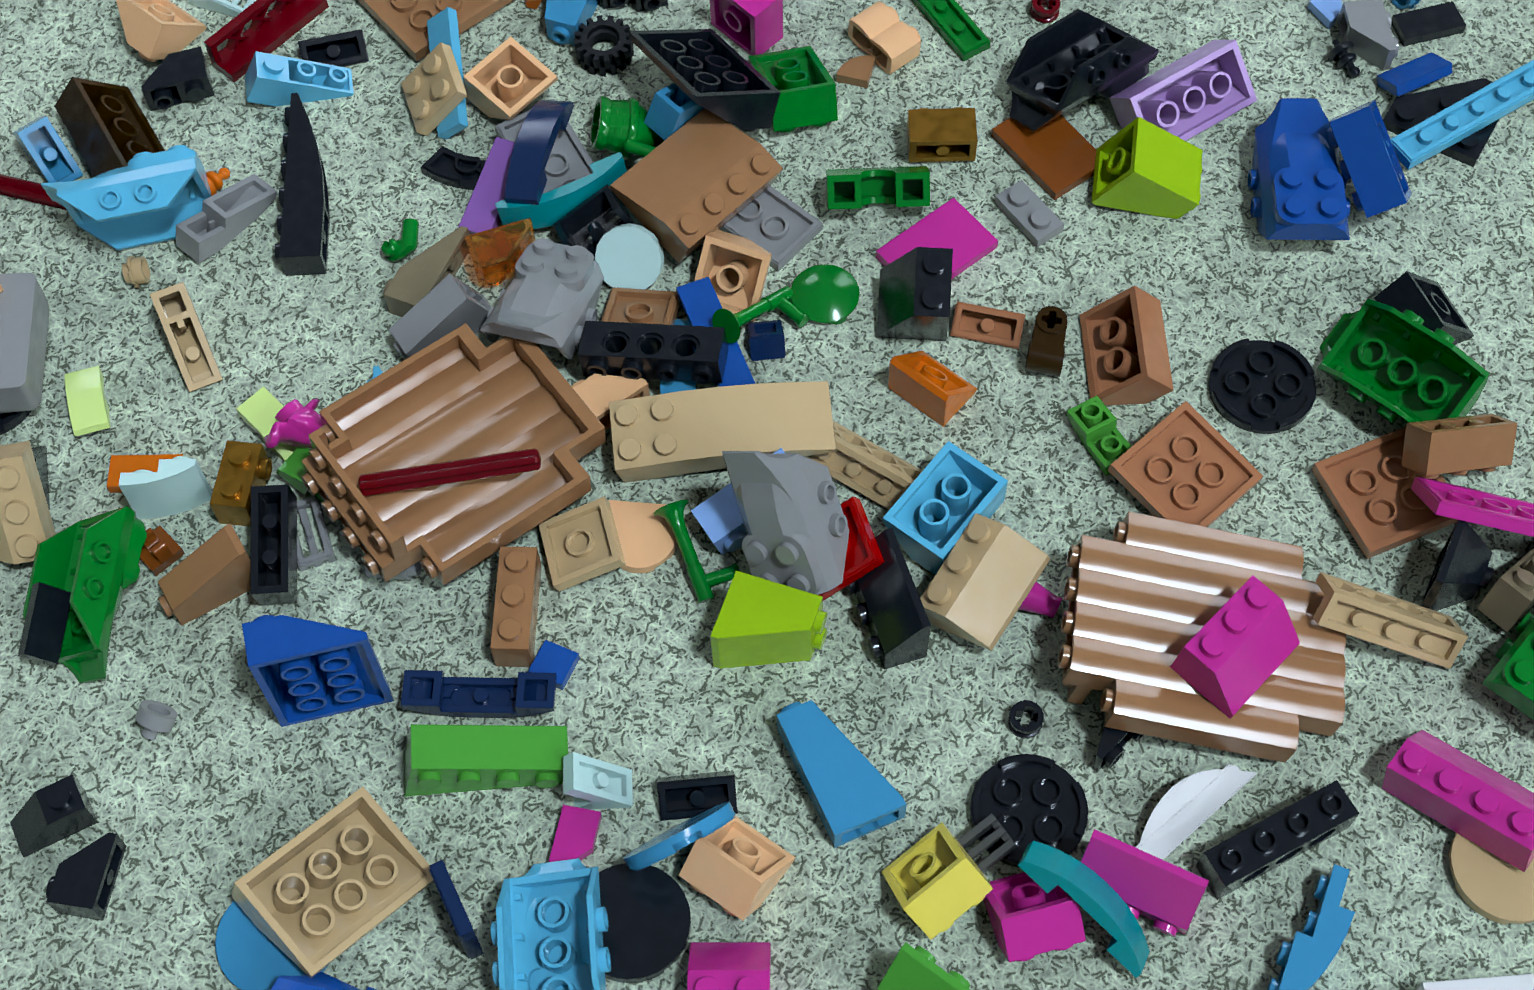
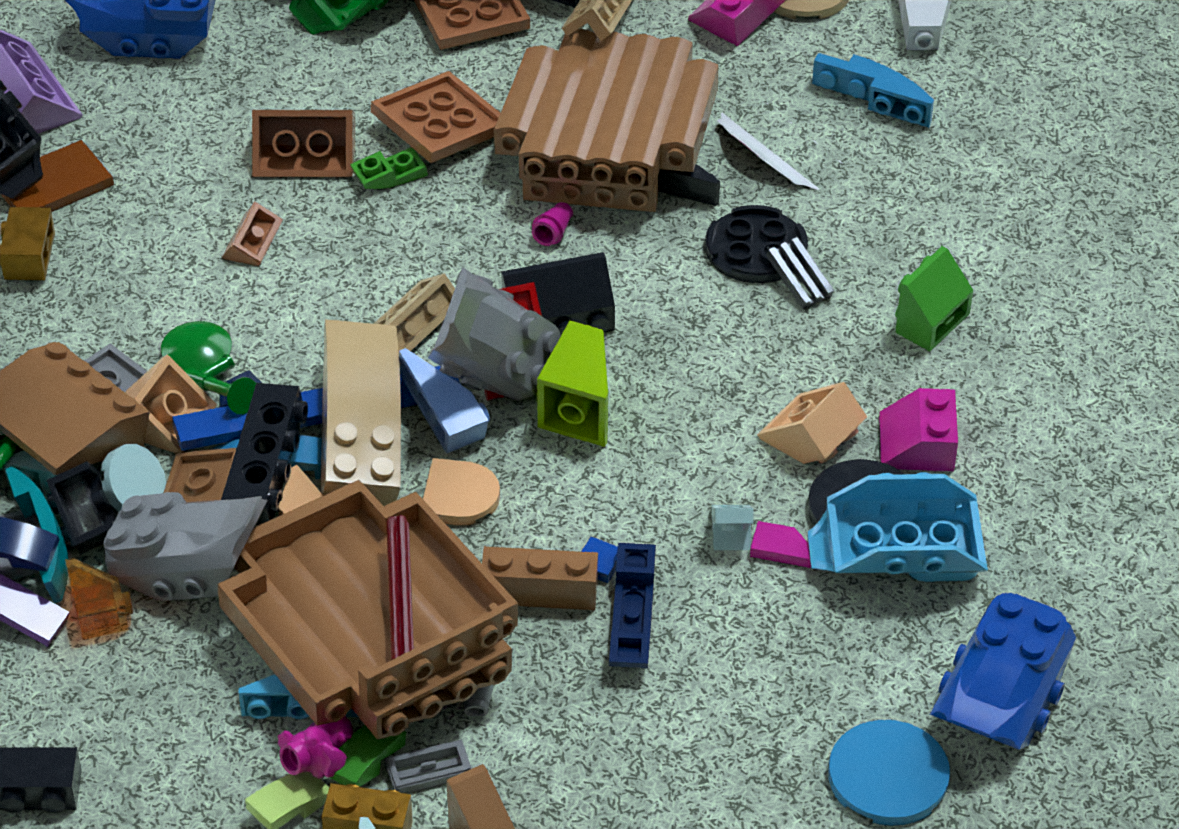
camera: 90 degrees left, 15 degrees down
(273, 544) = (427, 762): black brick -> none
(313, 668) = (627, 706): blue slope -> none
(333, 883) = (840, 705): tan slope -> none
(404, 246) = (60, 691): green arm -> none
(425, 272) = (123, 665): dark tan slope -> none
(438, 314) = (182, 641): light grey slope -> none
(455, 909) = (866, 608): dark blue tile -> none
(482, 757) = (709, 604): bright green wedge -> none
(581, 544) = (476, 517): tan plate -> none
(680, 836) = (797, 439): dark azure tile -> none
(694, 793) = (737, 457): black slope -> none
(701, 582) = (514, 445): green piece -> none
(839, 779) = (724, 356): dark azure slope -> none
(877, 185) = (77, 307): green arch -> none
(916, 295) = (232, 256): black slope -> none
(929, 385) = (323, 275): orange slope -> none
(936, 881) = (827, 290): light yellow slope -> none
(942, 504) = (457, 242): medium azure slope -> none
(945, 227) = (157, 265): dark pink tile -> none
(983, 582) = (541, 231): tan slope -> none
(1017, 711) = (671, 229): black bush -> none
(1029, 213) = (129, 199): light grey plate -> none
(1030, 919) = (851, 239): dark pink slope -> none
(1047, 345) = (289, 192): dark brown piece -> none
(1053, 868) = (834, 198): teal slope -> none
(1146, 882) = (830, 168): dark pink slope -> none
(1147, 172) = (108, 109): lime slope -> none
(1238, 647) = (630, 74): dark pink slope -> none
(1262, 386) = (349, 70): black tile -> none
(1277, 839) = (789, 96): black brick -> none

